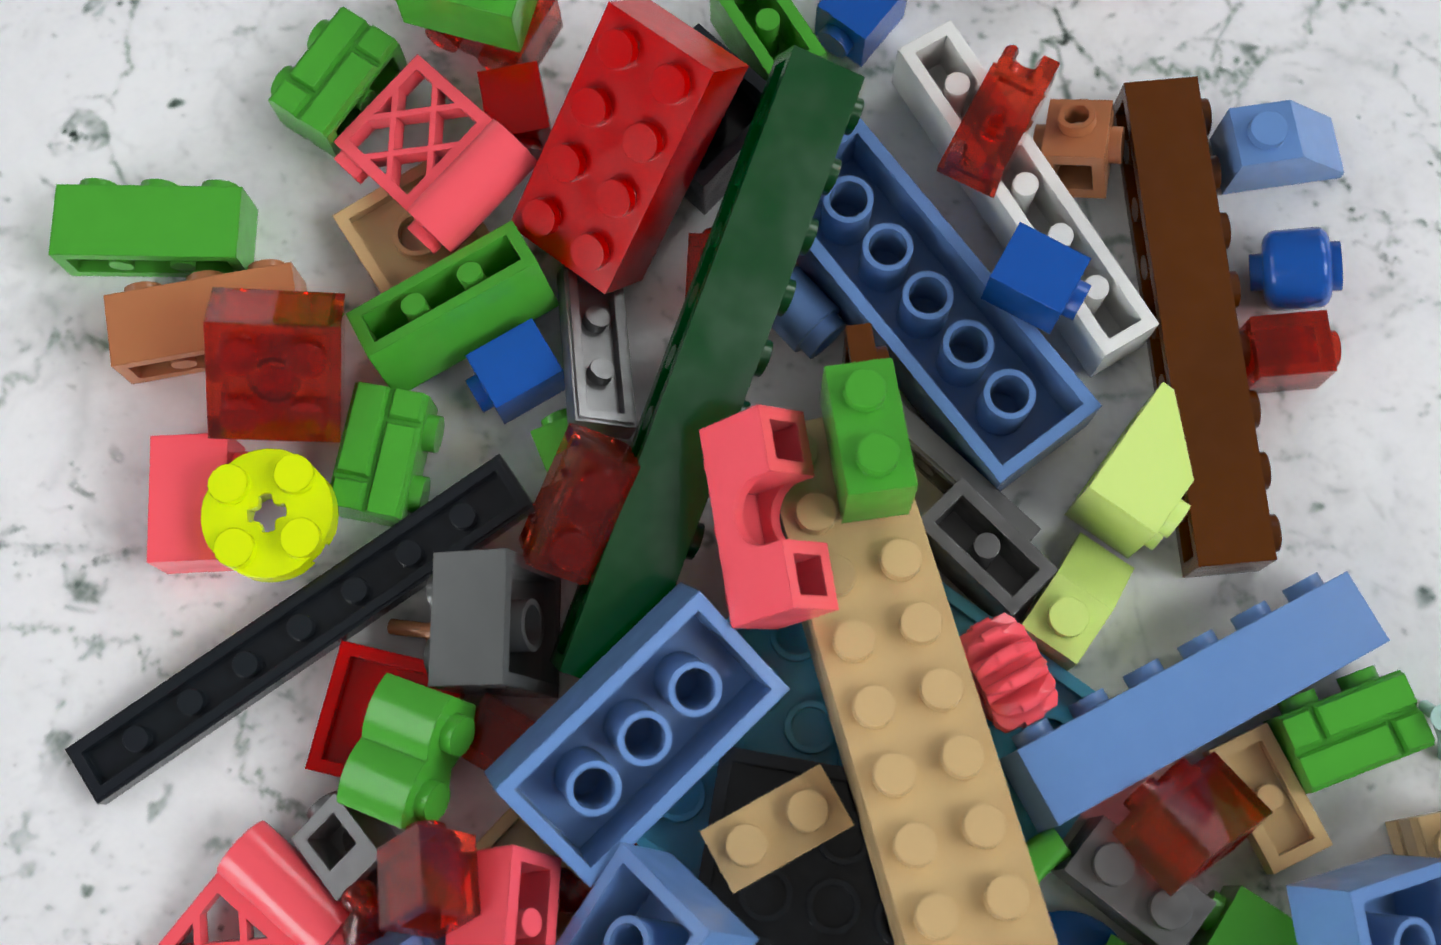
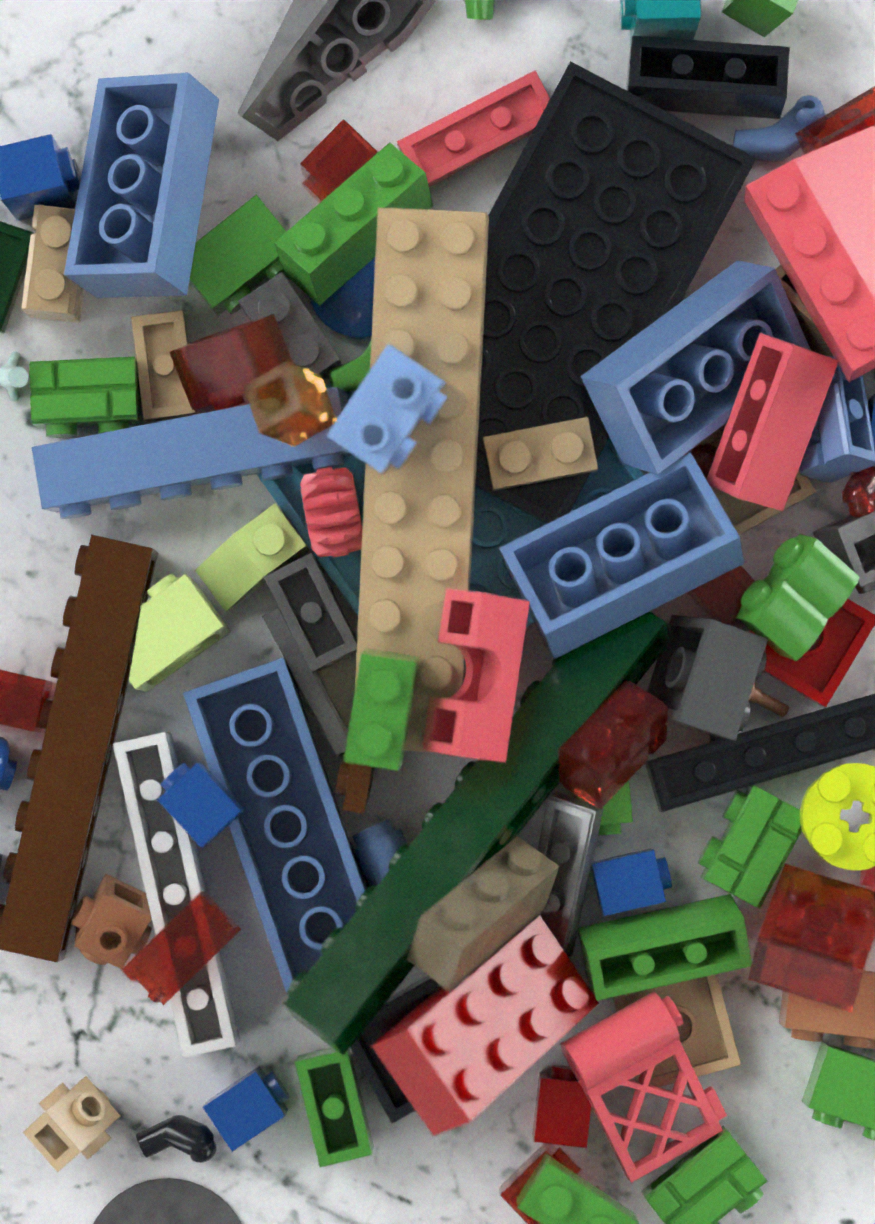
camera: 160 degrees left, 10 degrees up
(428, 880) = (806, 494): clear red brick -> none
(670, 259) = (482, 913): none -> dark tan brick
(992, 802) = (388, 409): none -> light blue brick
(1114, 776) = (290, 404): none -> clear orange brick

